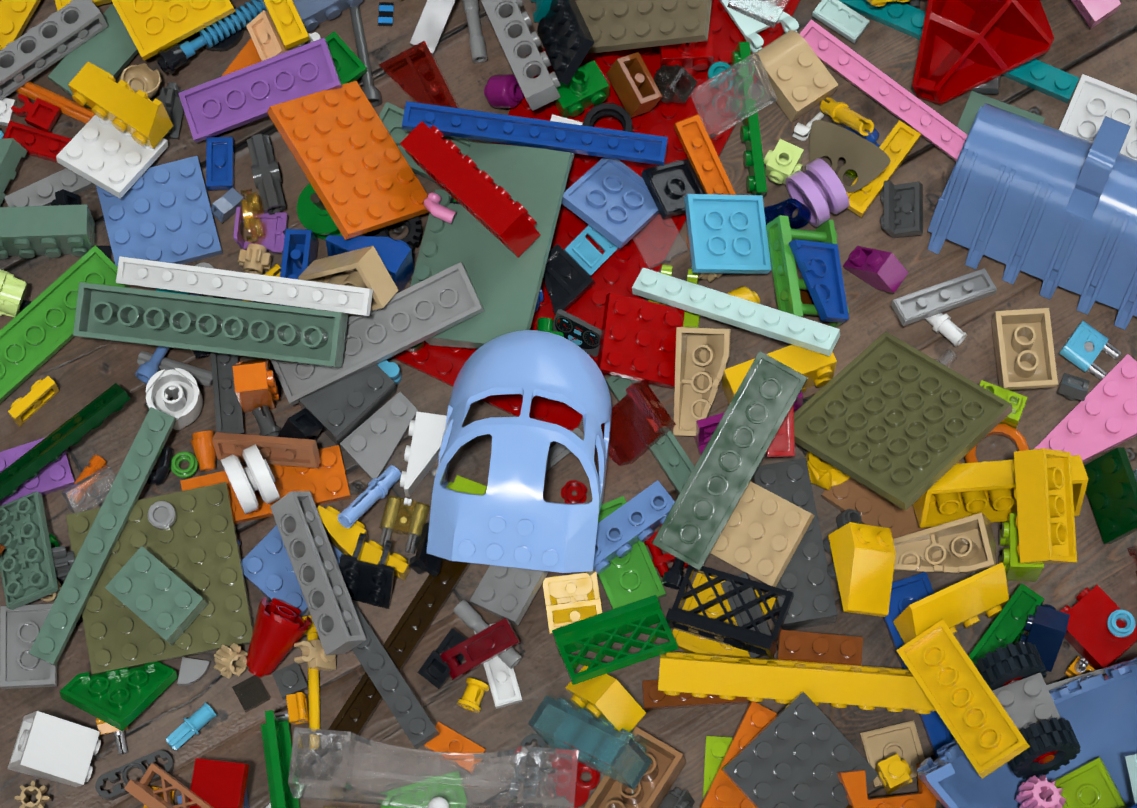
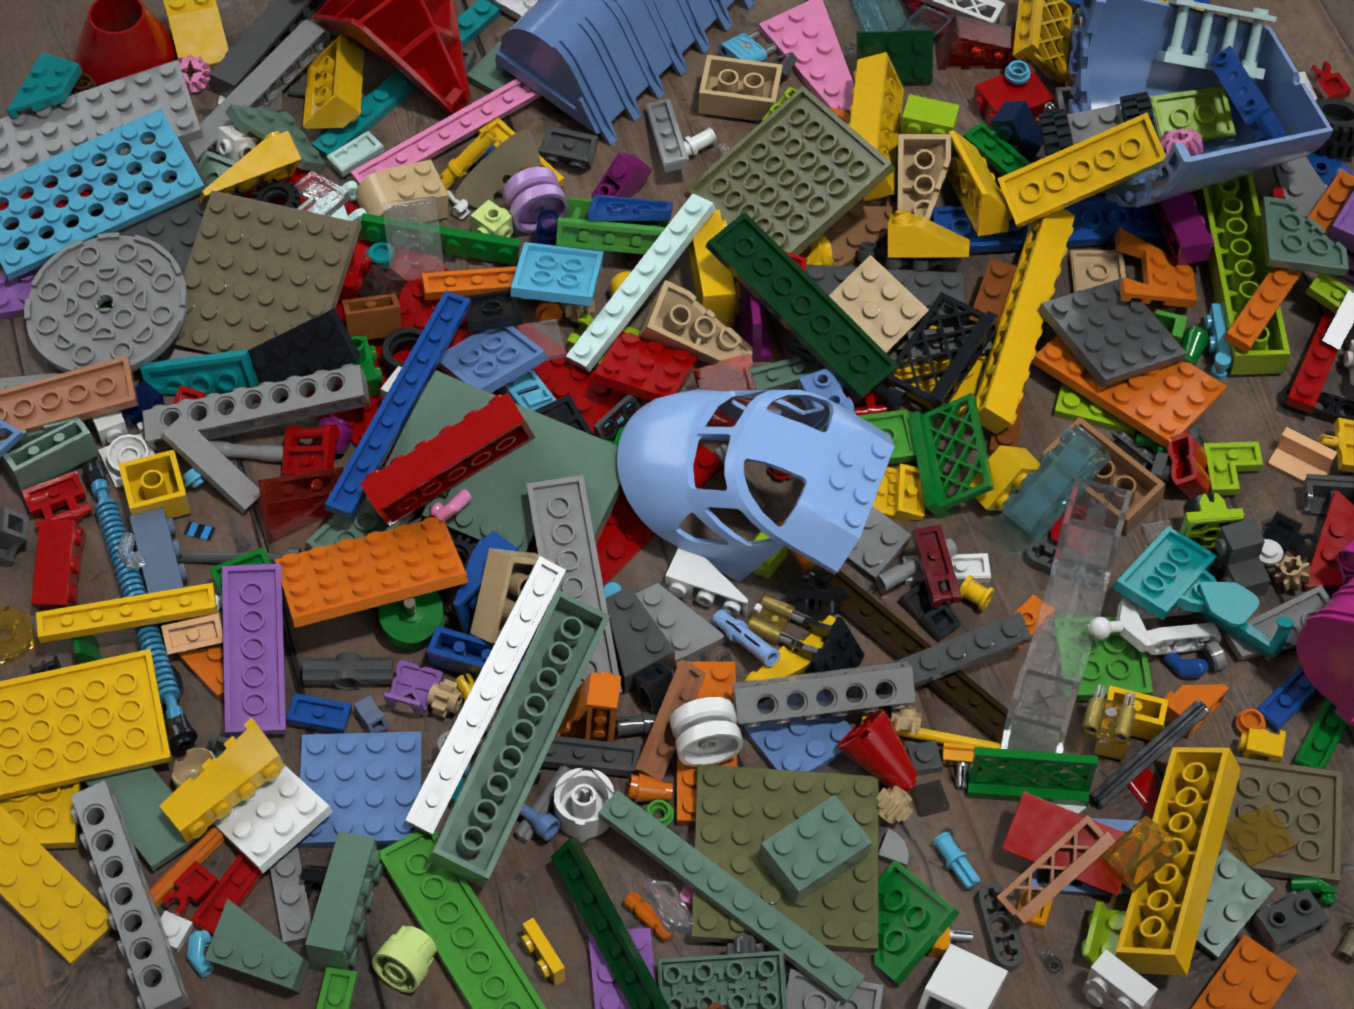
camera: 80 degrees left, 15 degrees down
(162, 515) = (722, 830): light grey tile -> none
(249, 208) = (400, 679): clear yellow plate -> none
(469, 75) = (309, 458): none -> red plate
(894, 773) = (1124, 259): yellow brick -> none
(1044, 506) = (910, 80): yellow slope -> none

